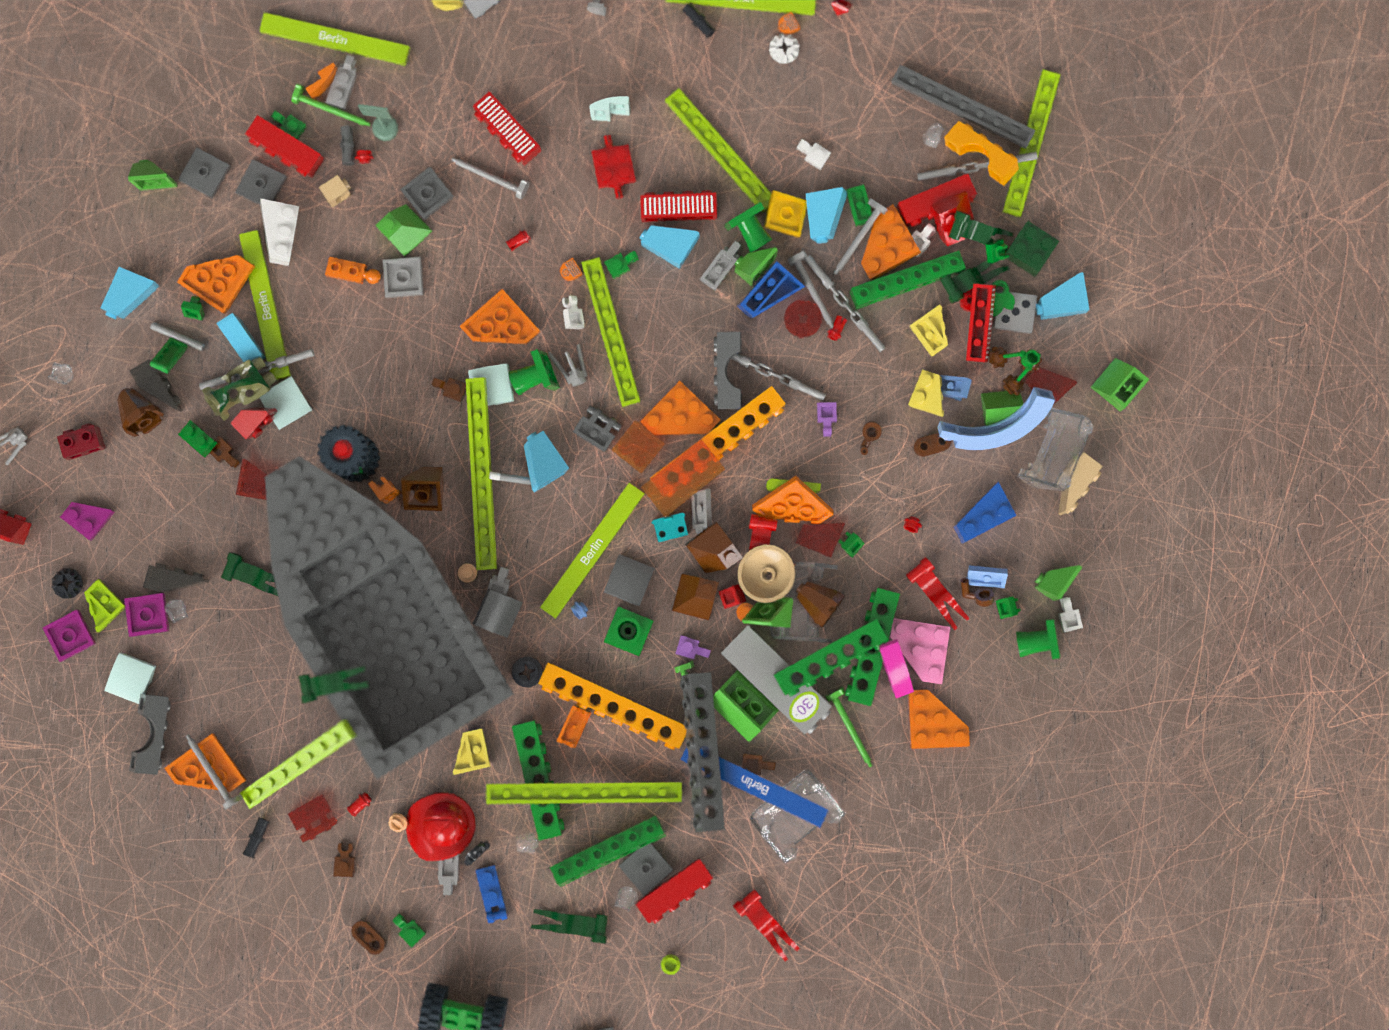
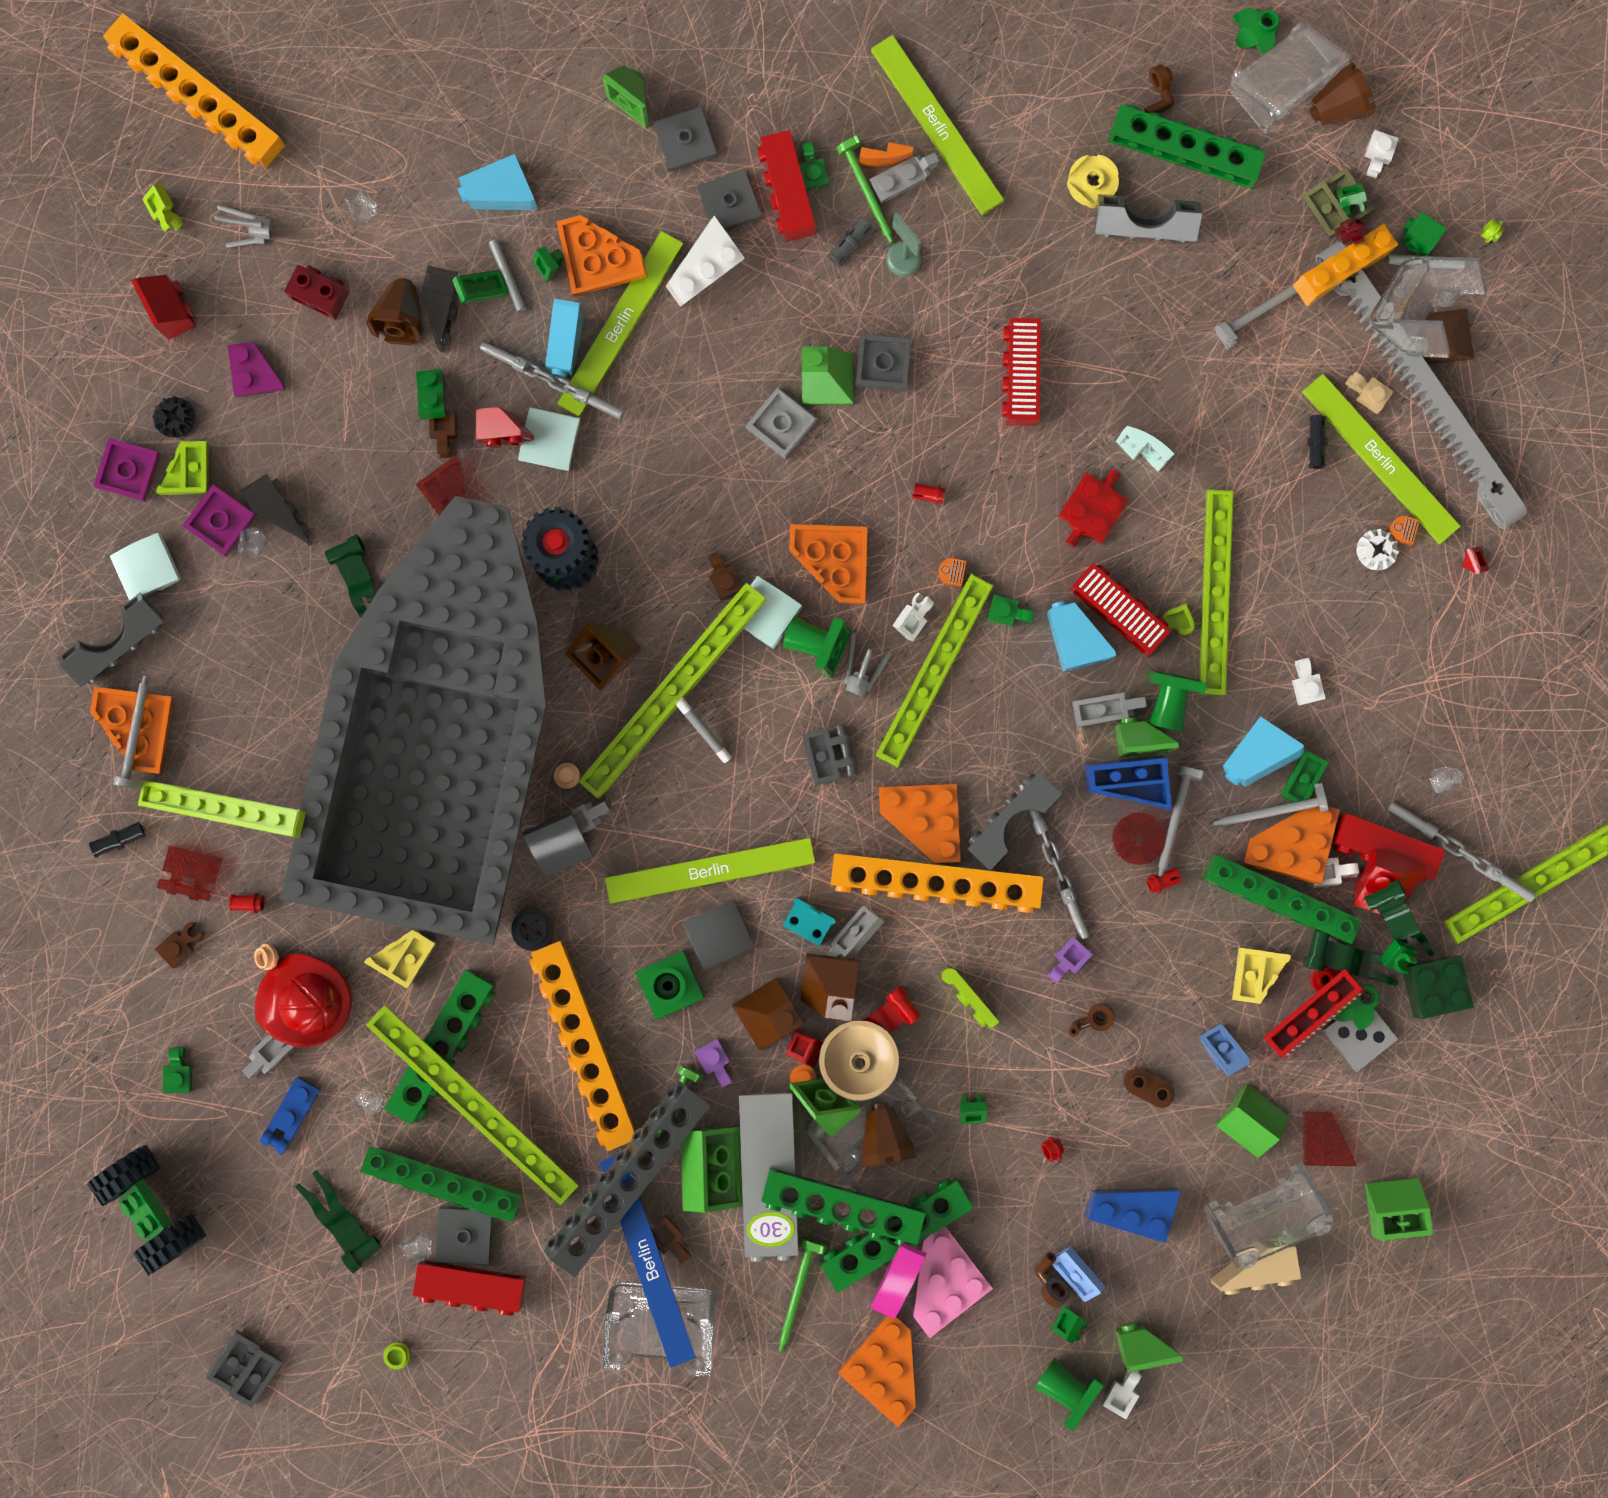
camera: 40 degrees right, 0 degrees up
(250, 378) = (534, 384): olive hips -> none
(327, 684) = (320, 760): dark green flag -> none
(335, 190) = (796, 276): tan brick -> none
(351, 271) = (736, 370): orange plate -> none
(364, 156) = (856, 268): red plate -> none
(366, 939) = (131, 1042): reddish brown plate -> none
(386, 491) = (562, 620): orange hinge -> none
(476, 852) = (312, 1061): black gear -> none
(520, 190) = (978, 446): light grey piece -> none
(543, 461) = (745, 735): medium azure slope -> none
(574, 726) = (526, 1028): orange hinge -> none
(579, 610) = (641, 917): medium blue plate -> none
(638, 447) = (852, 811): clear orange plate -> none
(683, 478) = (867, 885): clear orange plate -> none
(715, 182) = (1180, 620): none -> lime tile
(763, 921) = (527, 1402): red flag -> none
(785, 214) = (1221, 717): yellow tile -> none
(793, 504) = (952, 1015): orange plate -> none
(820, 537) = (948, 1074): clear red wing -> none
(861, 323) = (1193, 899): light grey piece -> none
(928, 394) = (1193, 1033): light yellow wing -> none
(934, 590) = (1012, 1237): red flag -> none
(963, 106) = (1504, 778): dark grey plate -> none
(964, 139) = (1473, 812): light orange arch -> none
(1004, 431) = (1234, 1146): light blue arch -> none
(1029, 360) = (1327, 1098): reddish brown plant -> none
(1065, 300) = (1423, 1071): medium azure slope -> none

